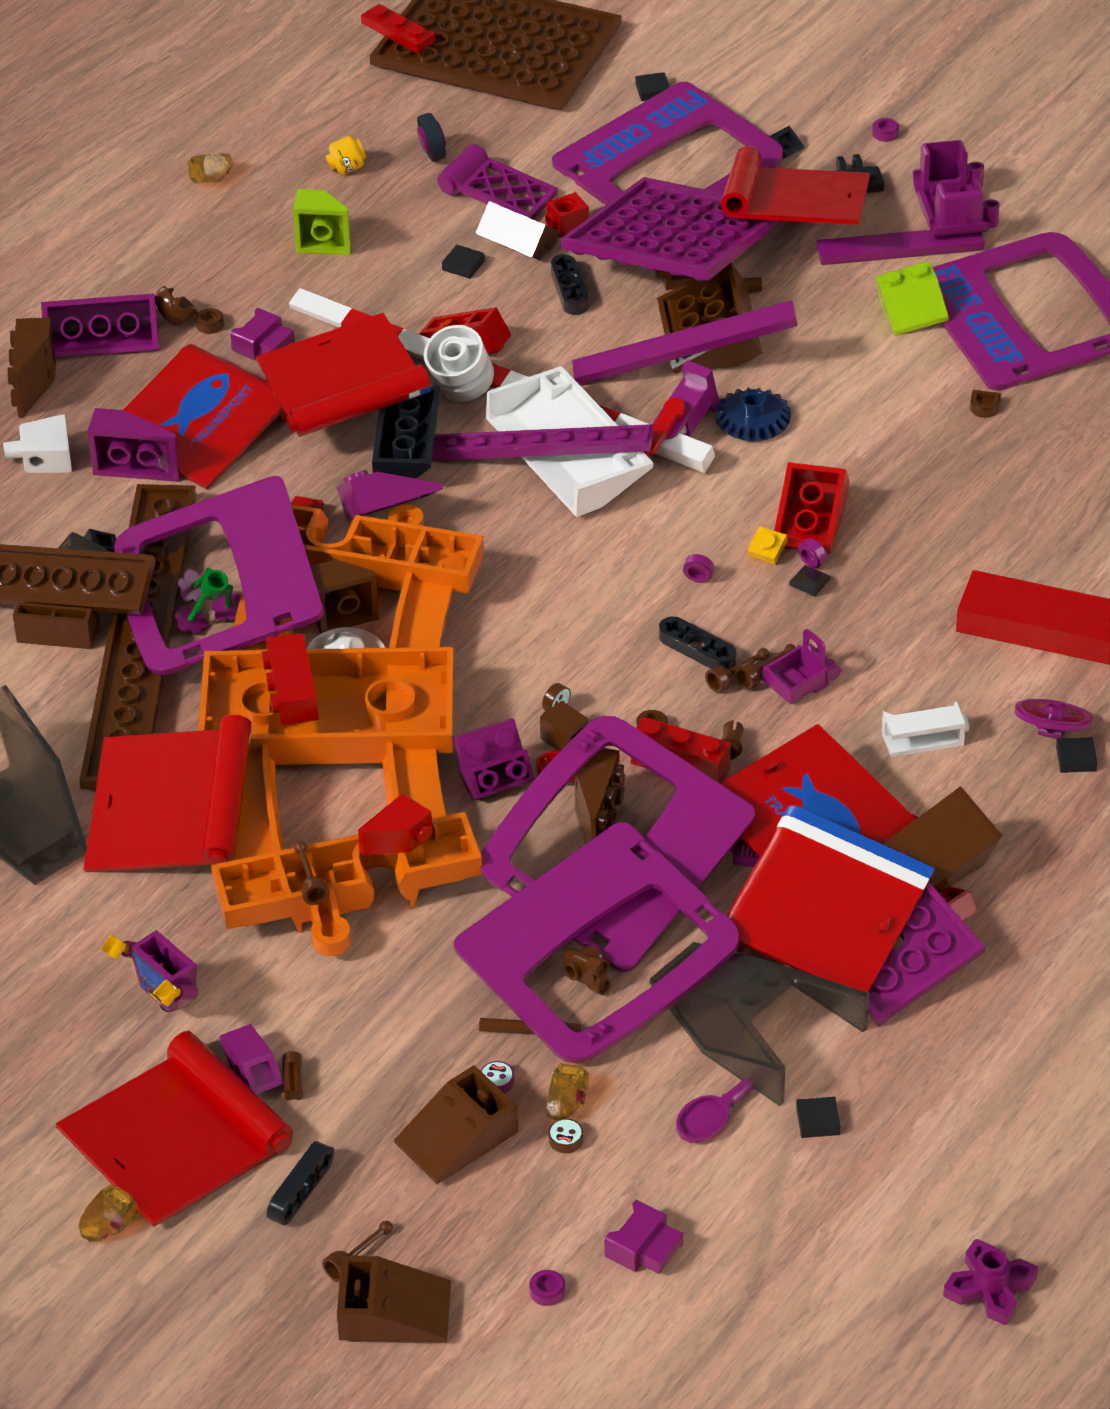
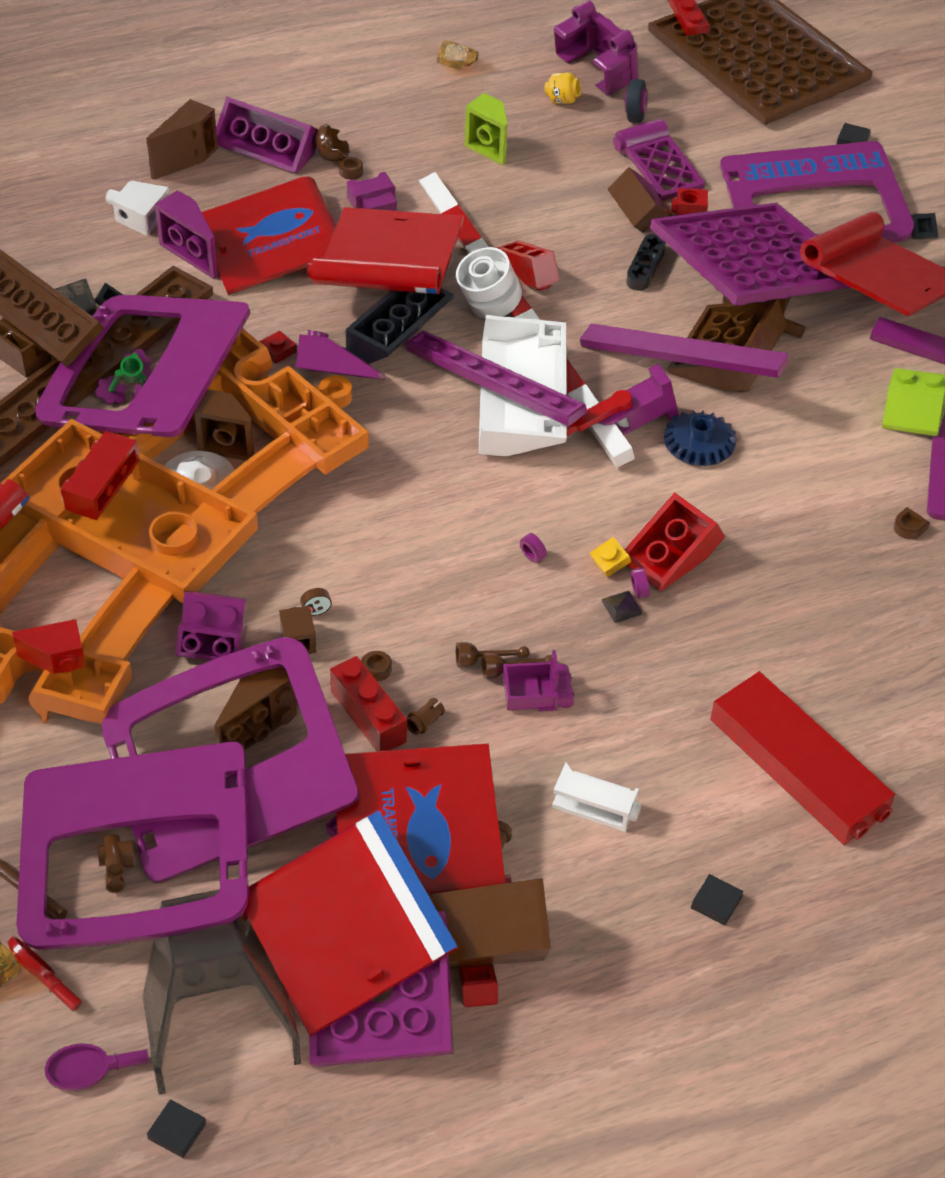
camera: 30 degrees right, 5 degrees up
(353, 91) = (614, 46): none -> magenta container
(463, 261) = (580, 207): black piece -> none
(606, 1070) = (42, 971): none -> red piece
(679, 634) = (475, 625): black beam -> none
(1053, 716) = (721, 849): magenta shield -> none

